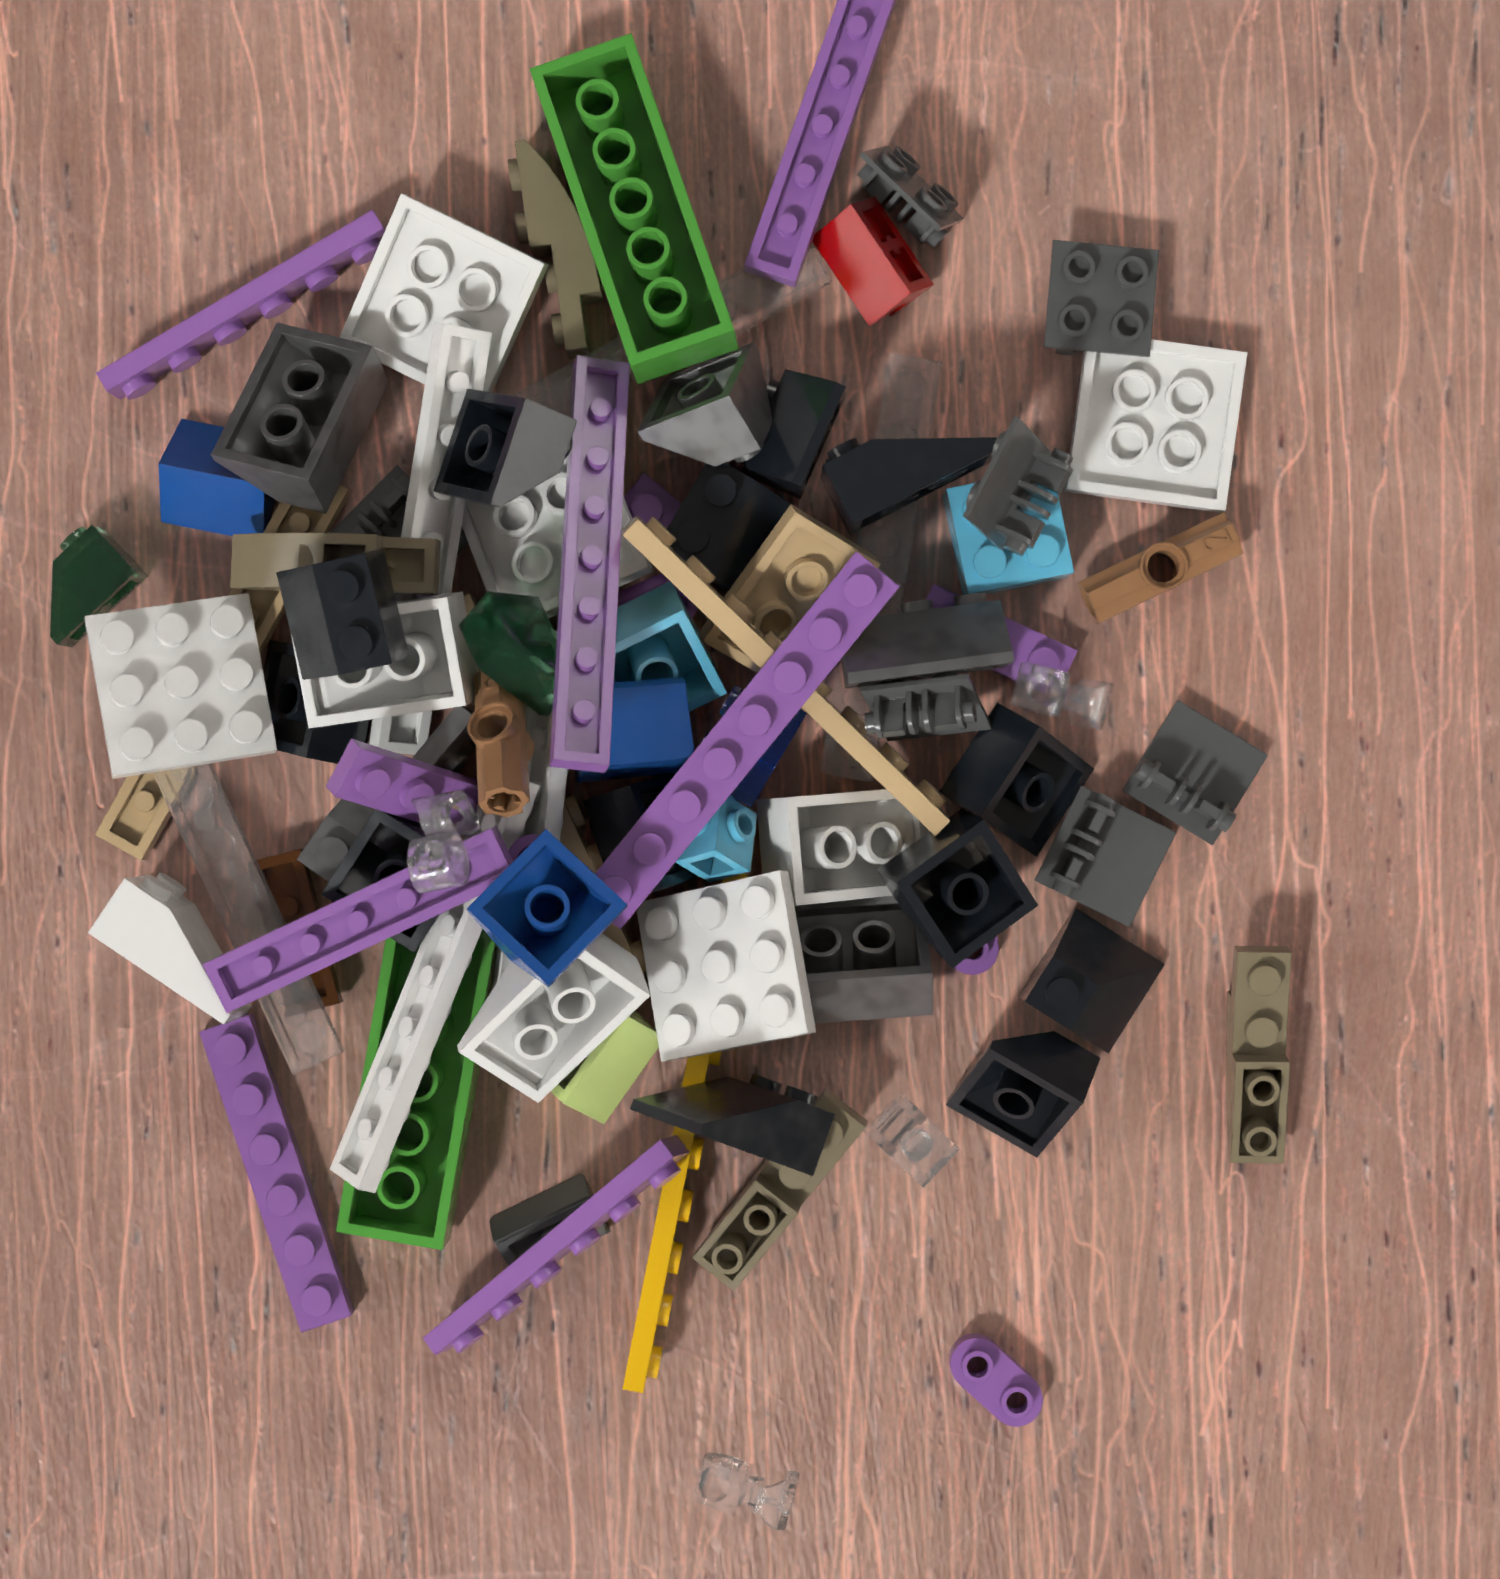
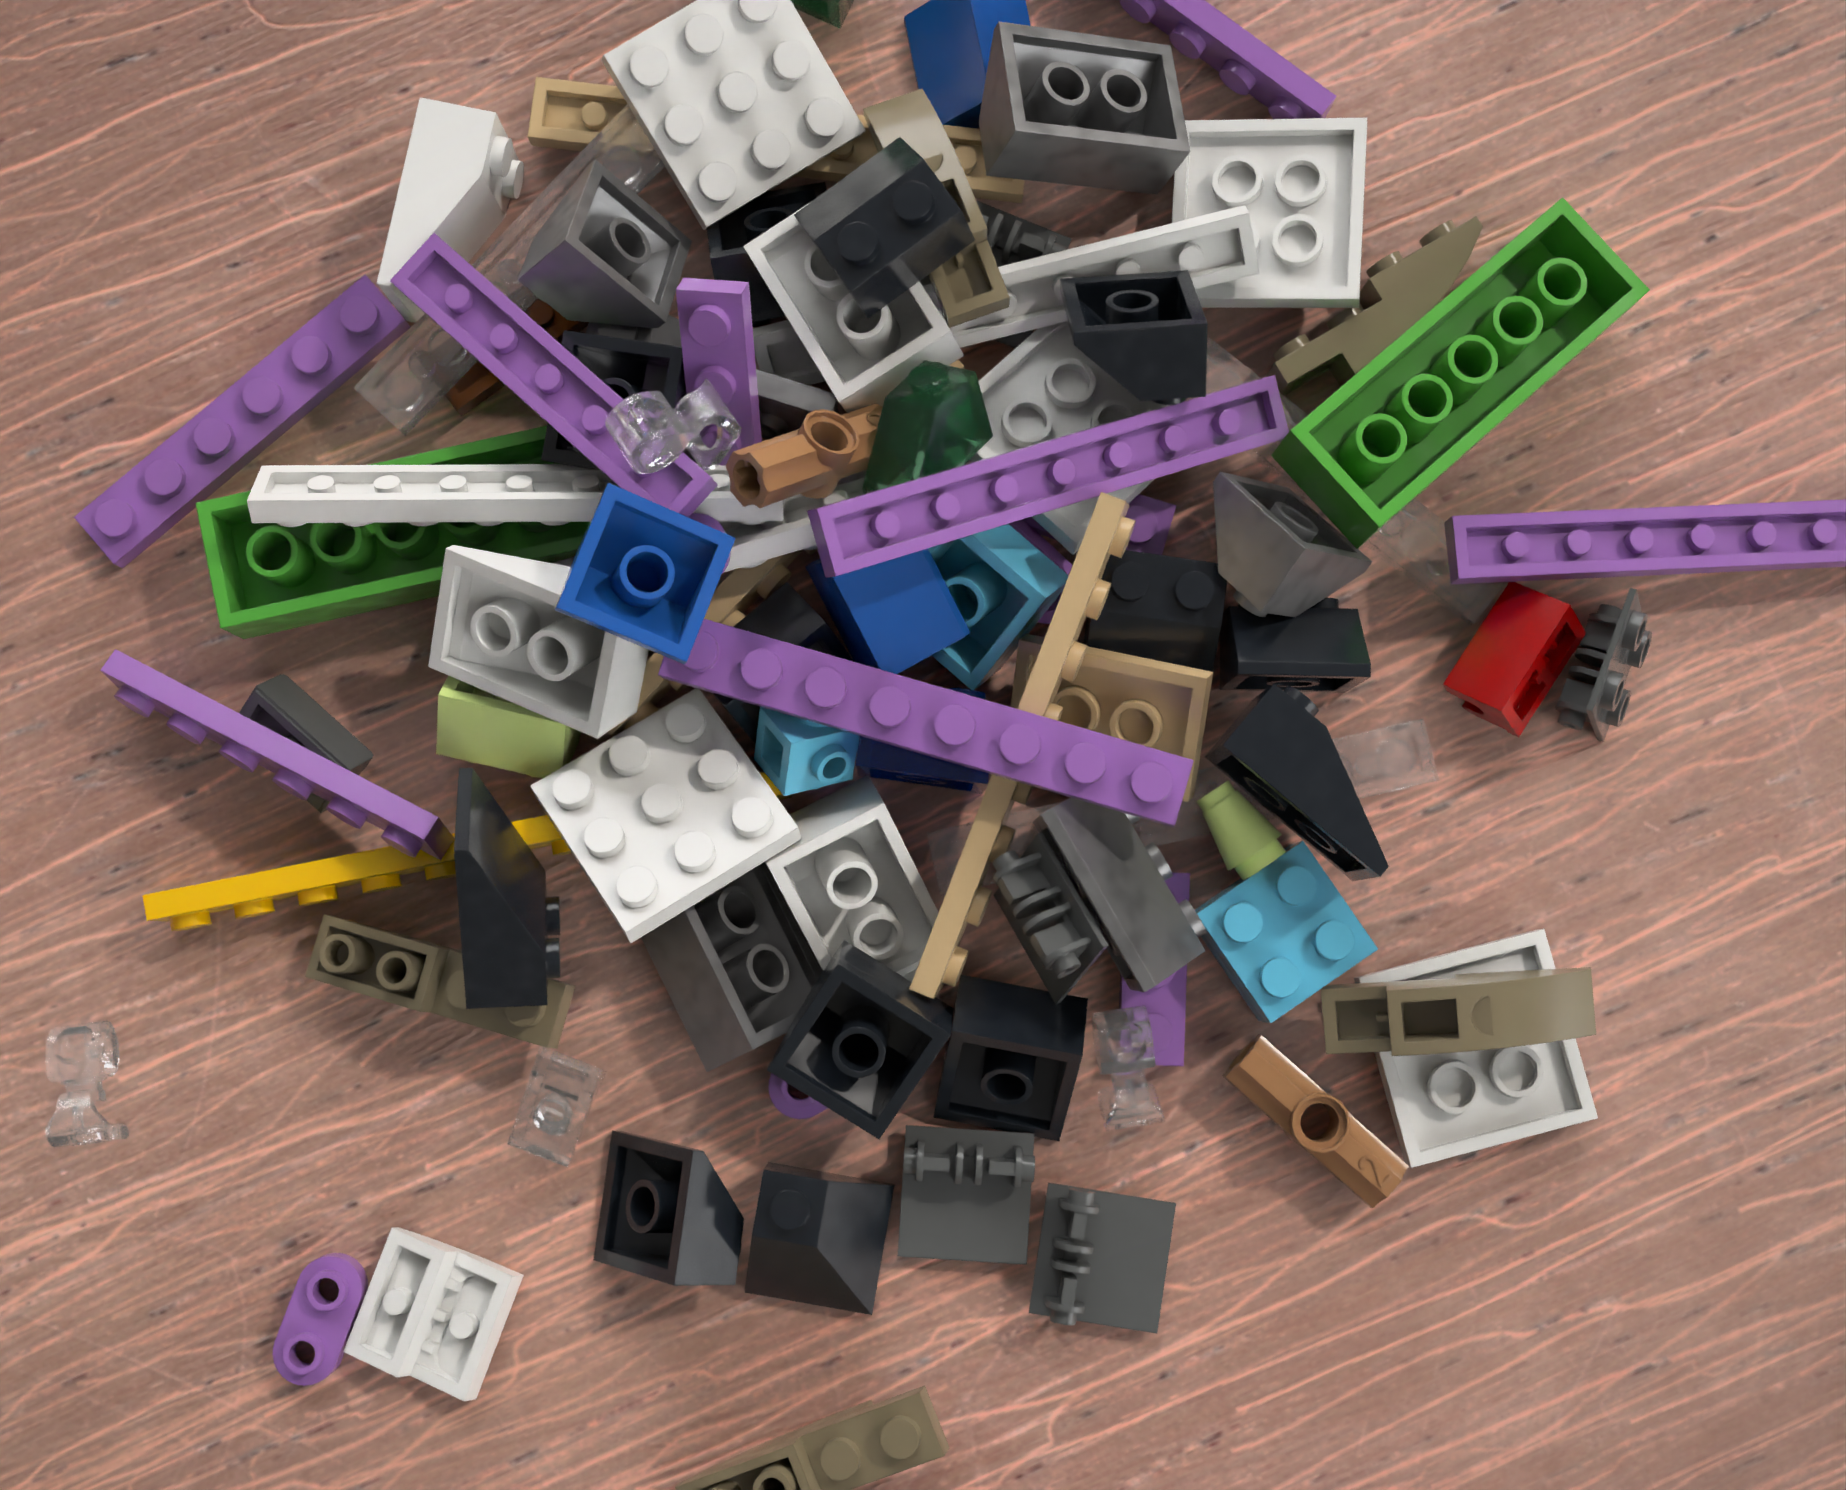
camera: 65 degrees right, 5 degrees down
(270, 837) = (606, 255): none -> flat silver slope
(919, 533) = (1240, 831): none -> yellowish green cone
(1010, 481) = (1340, 905): dark grey hinge -> none
(1027, 1293) = (433, 1313): none -> white slope
(1100, 299) = (1587, 918): dark grey hinge -> none
(1126, 425) = (1459, 1012): none -> dark tan slope

